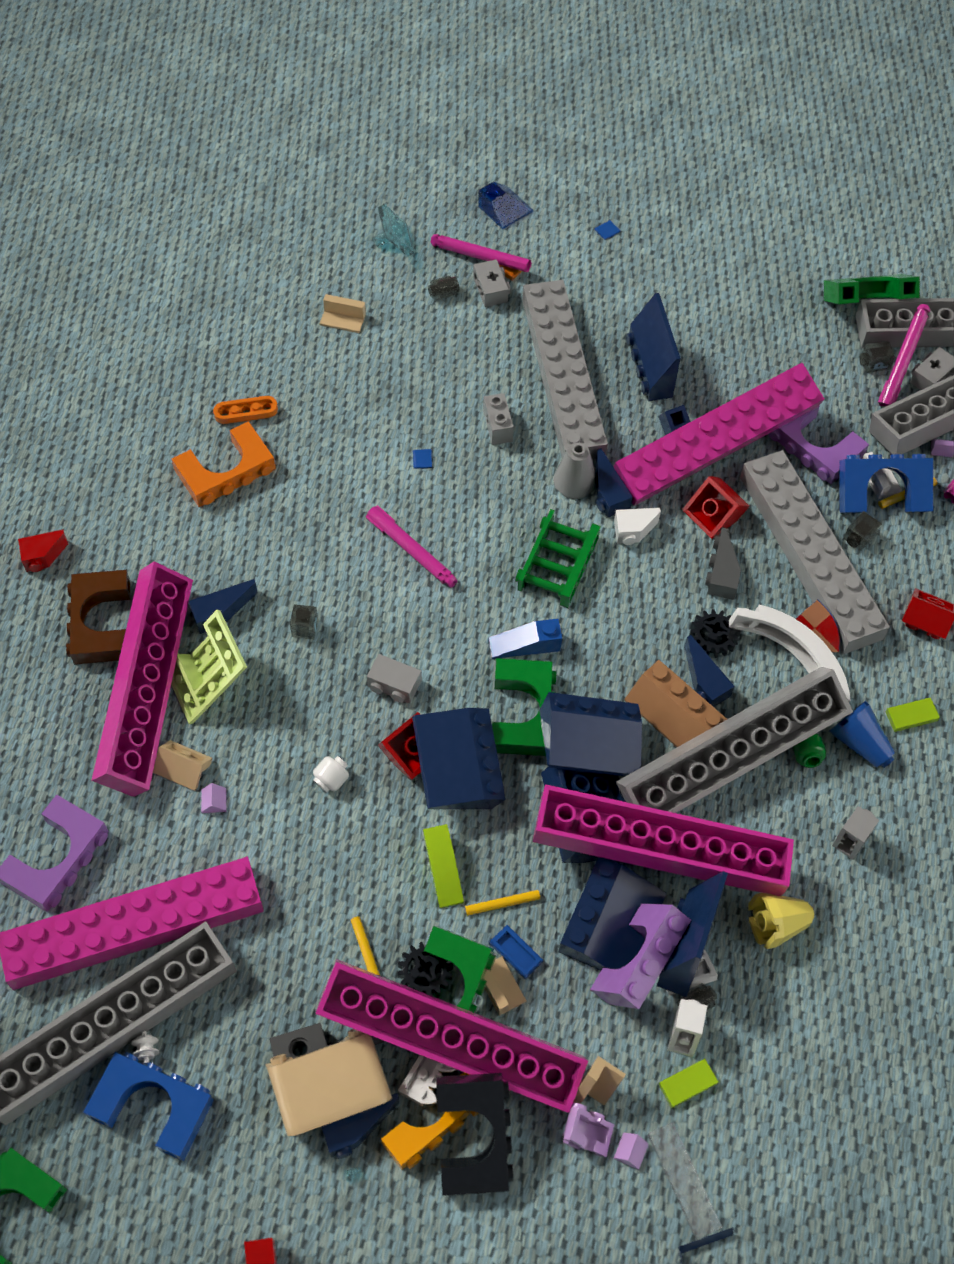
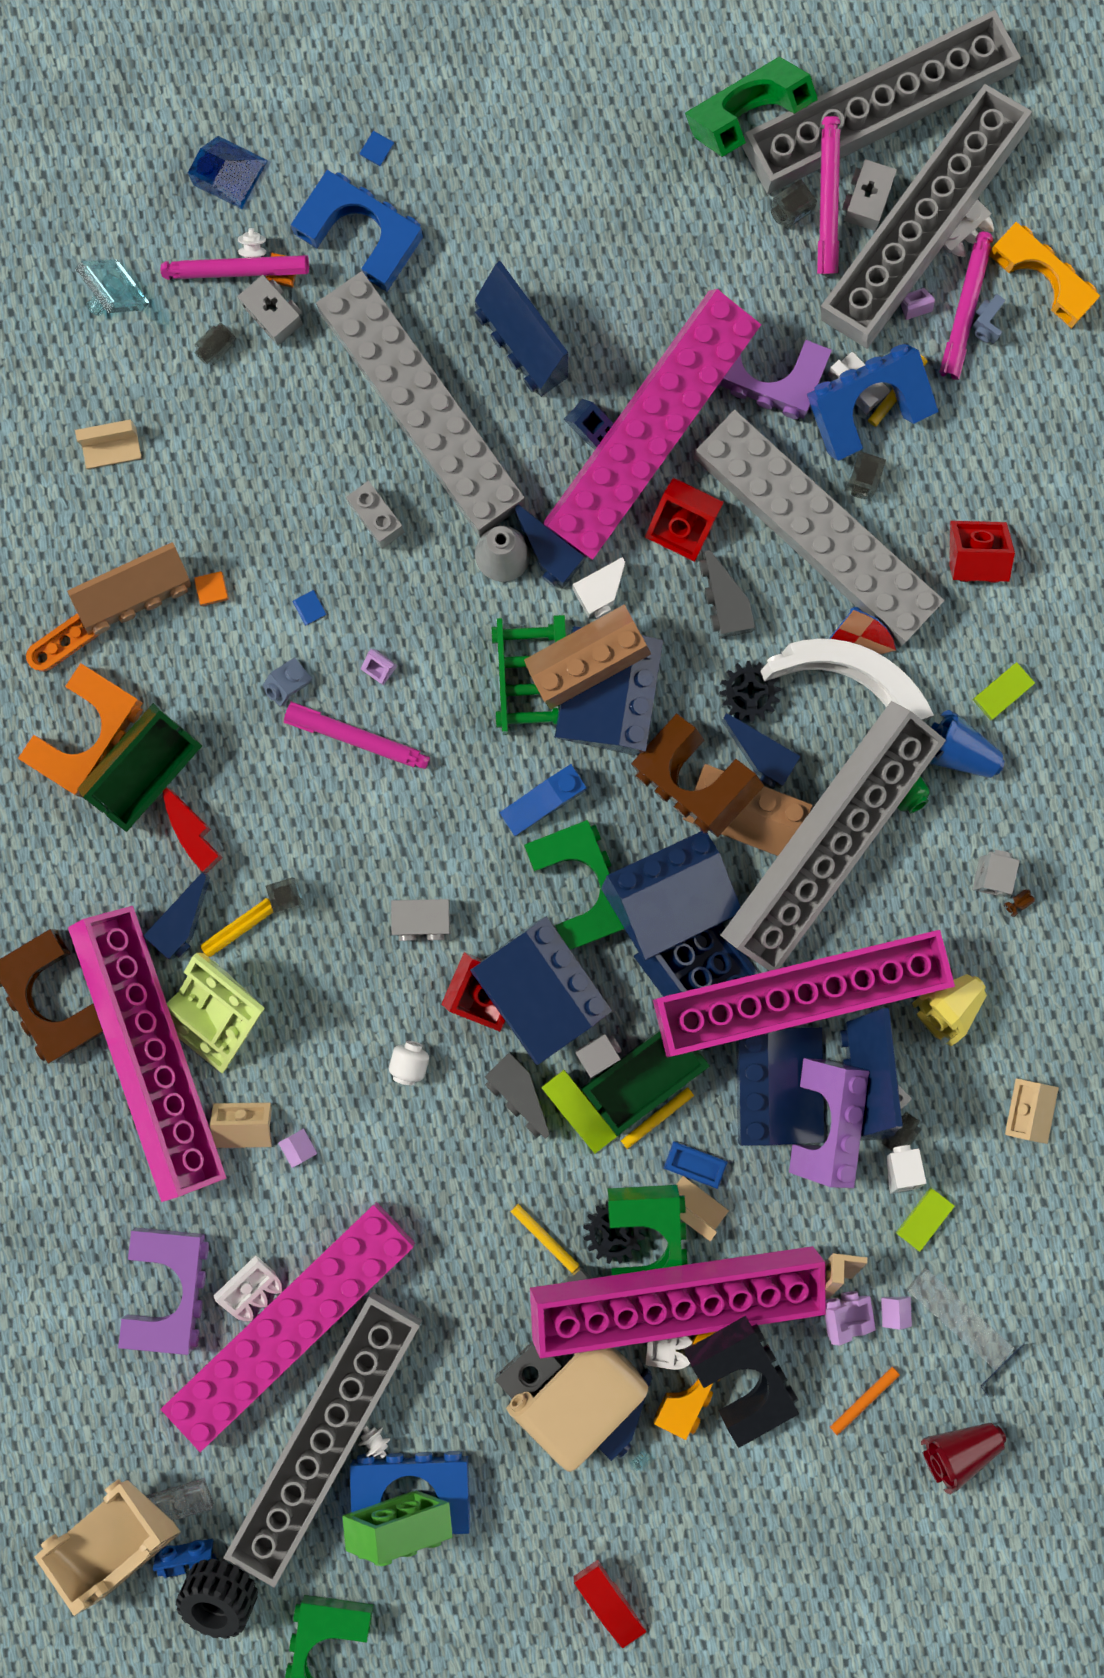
camera: 20 degrees left, 25 degrees up
(116, 880) = (248, 1289): none -> white plate
(124, 1114) = (397, 1527): none -> bright green brick
(250, 496) = (139, 767): none -> dark green piece
(261, 555) = (190, 832): none -> red slope
(261, 630) = (237, 928): none -> yellow axle
(307, 390) = (130, 589): none -> medium nougat slope
(362, 420) = (211, 588): none -> orange tile
(381, 491) = (286, 681): none -> sand blue bracket
(404, 826) = (517, 1087): none -> dark grey slope
(451, 510) = (378, 666): none -> lavender slope
(479, 826) = (599, 1054): none -> light grey brick
(498, 243) = (252, 244): none -> white wheel
(505, 863) = (641, 1082): none -> dark green piece
(568, 242) = (336, 198): none -> blue arch
(570, 1215) = (864, 1401): none -> orange bar
(605, 554) = (587, 657): none -> medium nougat slope
(609, 585) = (616, 710): none -> dark blue slope
(648, 681) = (710, 807): none -> reddish brown arch
(816, 1034) = (1031, 1111): none -> tan panel
(869, 869) = (1021, 901): none -> reddish brown piece

